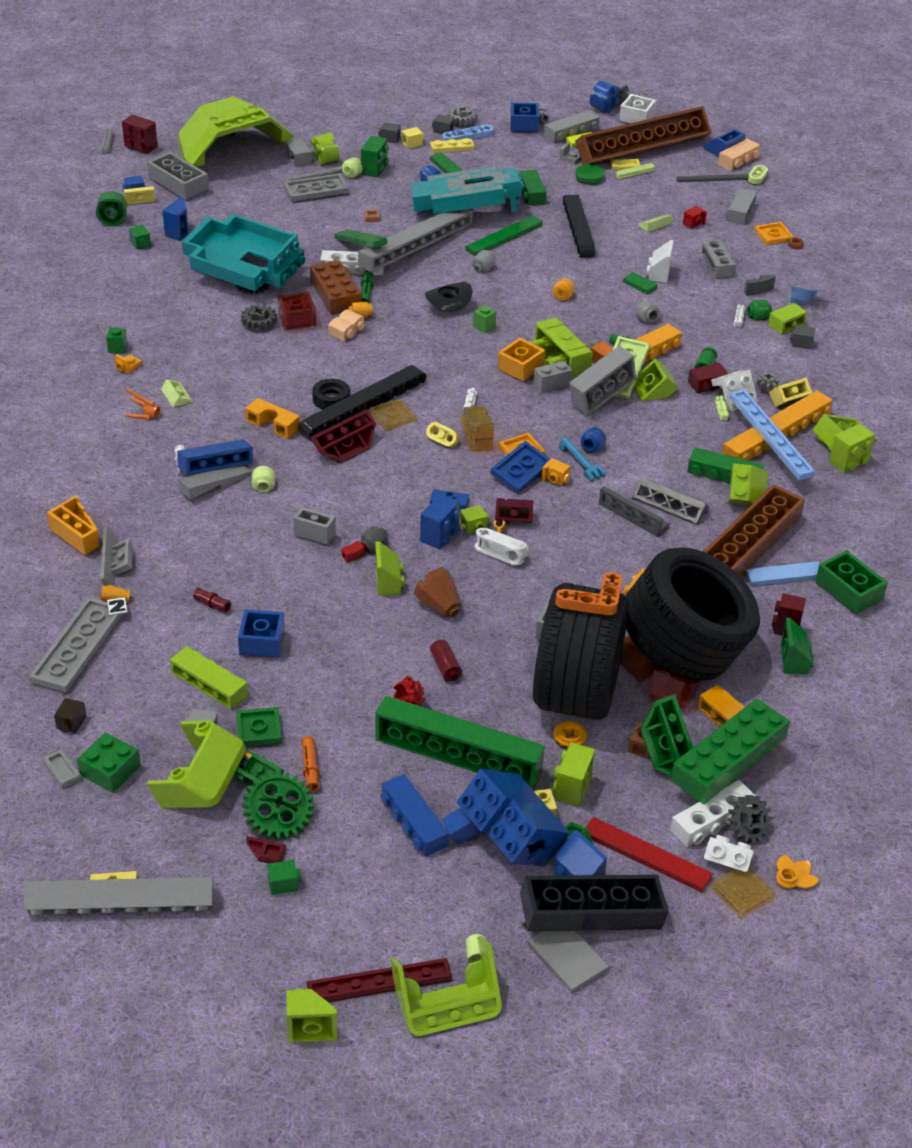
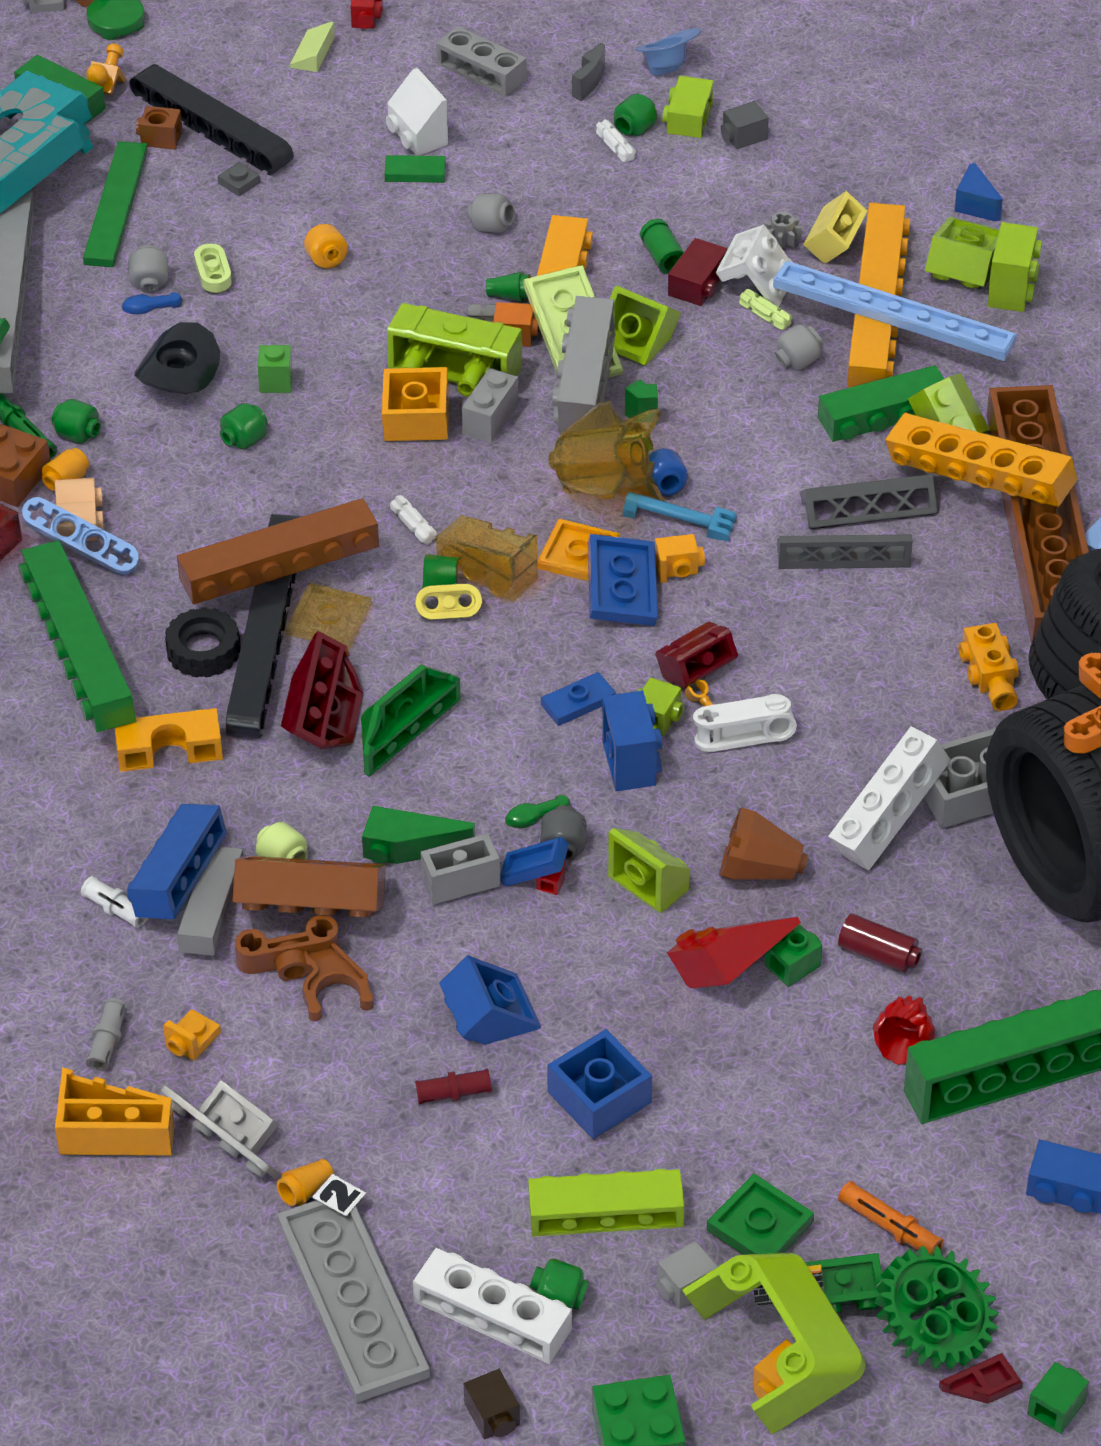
camera: 40 degrees left, 5 degrees up
(117, 500) = (106, 1034): none -> light grey pin
(119, 682) = (437, 1290): none -> white brick
(146, 520) = (190, 1035): none -> light orange bracket
(150, 693) = (560, 1282): none -> green head
(220, 522) = (301, 954): none -> dark orange piece
(248, 494) = (309, 883): none -> dark orange brick
(264, 579) = (487, 1002): none -> blue slope
(283, 363) = (76, 637): none -> green brick
(309, 497) = (402, 835): none -> green slope
(334, 331) = (82, 533): none -> light blue beam
(346, 541) = (534, 861): none -> blue tile
(368, 460) = (406, 713): none -> green wedge
(368, 524) = (528, 814): none -> green piece
(372, 616) = (723, 953): none -> red slope
(387, 296) = (76, 421): none -> green head
(392, 375) = (278, 551): none -> dark orange brick
(405, 641) = (794, 956): none -> green brick
(447, 332) = (243, 426): none -> green head
(453, 421) = (439, 570): none -> green tile
(469, 273) = (143, 303): none -> blue piece
(507, 613) = (889, 798): none -> white brick
(510, 274) = (212, 268): none -> yellowish green plate
(554, 190) = (107, 73): none -> light orange piece
(554, 218) = (160, 127): none -> dark orange brick
(563, 251) = (239, 179): none -> dark grey plate
(568, 415) = (607, 454): none -> clear yellow brick
(617, 410) = (640, 398): none -> green piece
(715, 427) = (799, 347): none -> light grey head
(728, 506) = (981, 459): none -> light orange brick
(875, 415) = (978, 196): none -> blue slope

